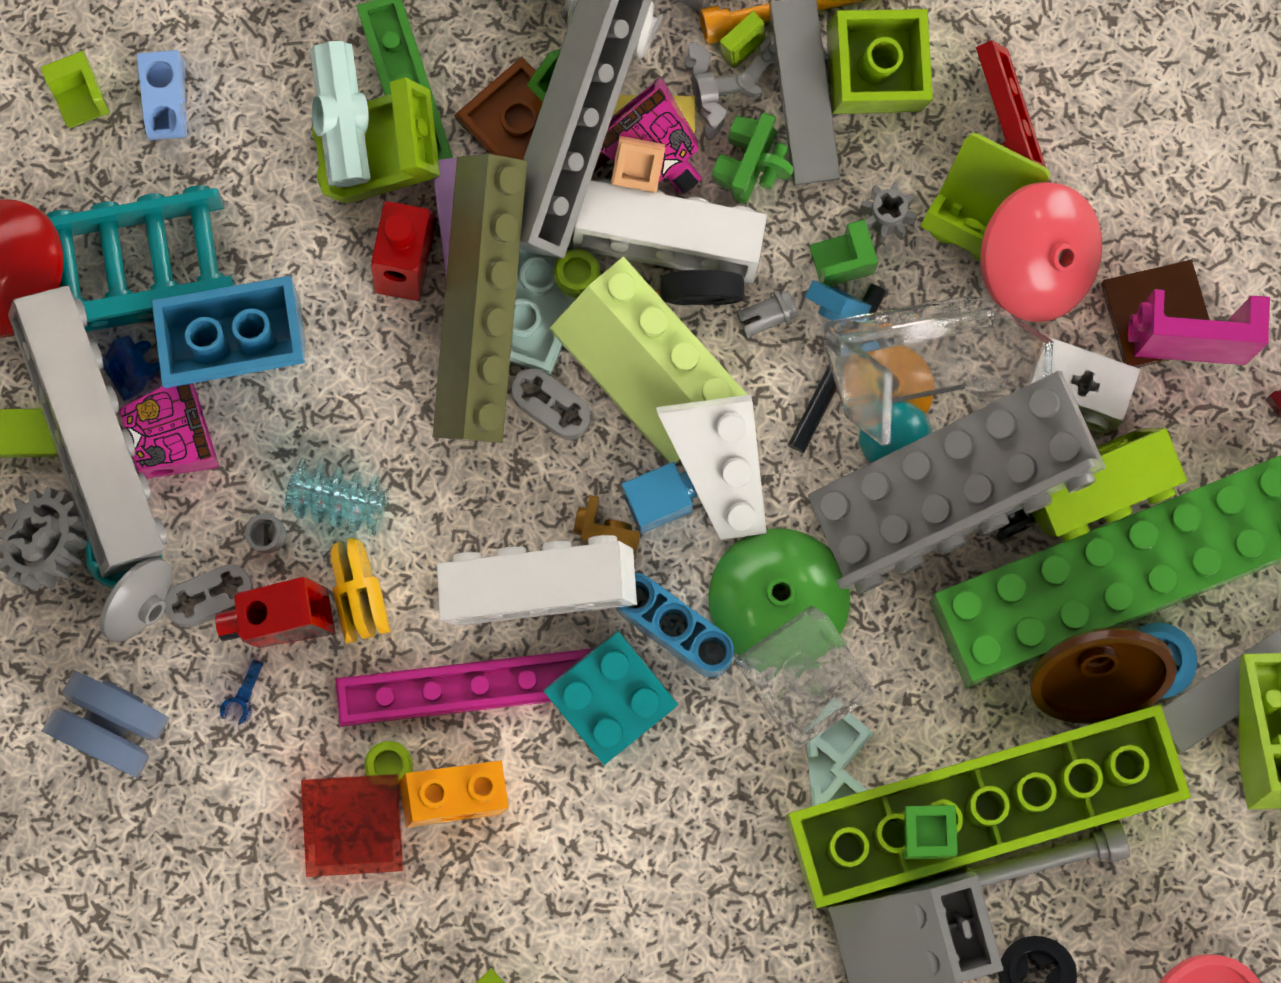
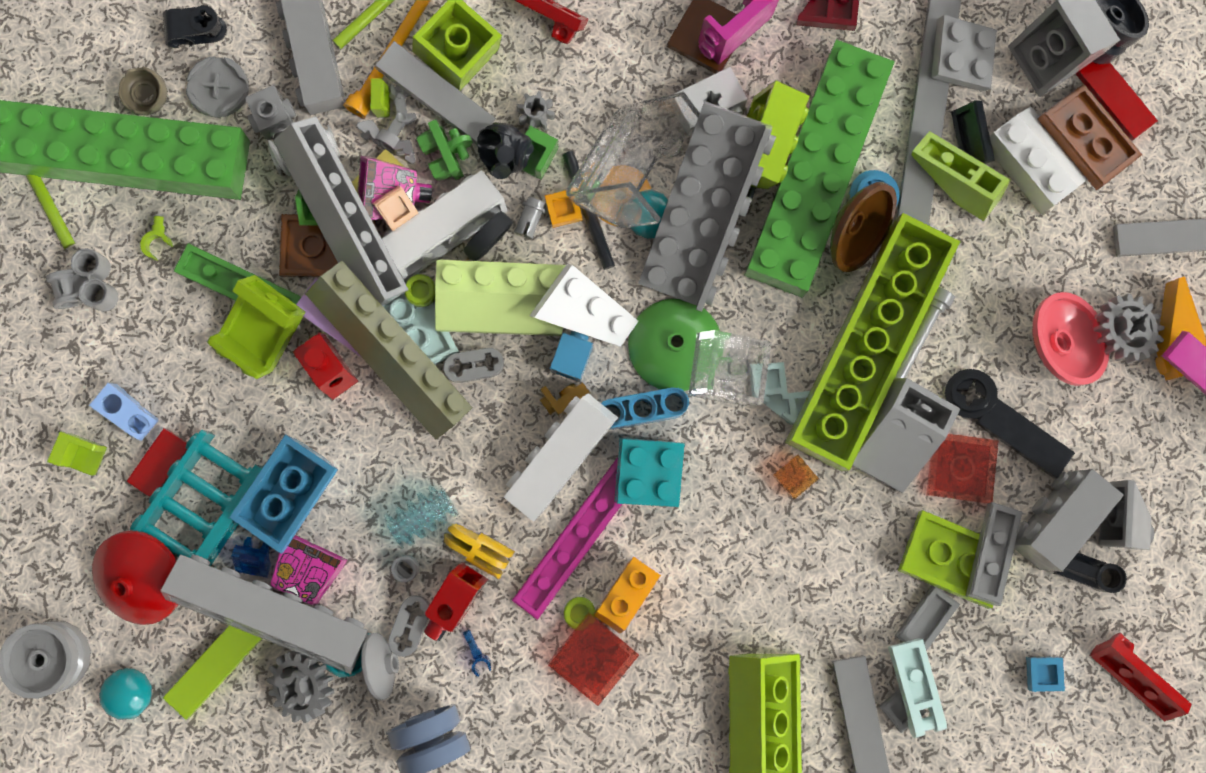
camera: 50 degrees left, 5 degrees up
(132, 177) = (154, 466): none -> red tile
(340, 114) = (223, 331): light aqua piece -> none
(757, 862) = (795, 476): none -> clear orange plate
(806, 339) = (562, 209): none -> light orange plate
(812, 217) = (503, 149): none -> black hair
(834, 302) = (557, 179): dark azure plate -> none
(930, 832) = (869, 381): bright green panel -> none
(975, 188) = (576, 58): lime bracket -> none
(1024, 249) = (627, 57): coral dish -> none

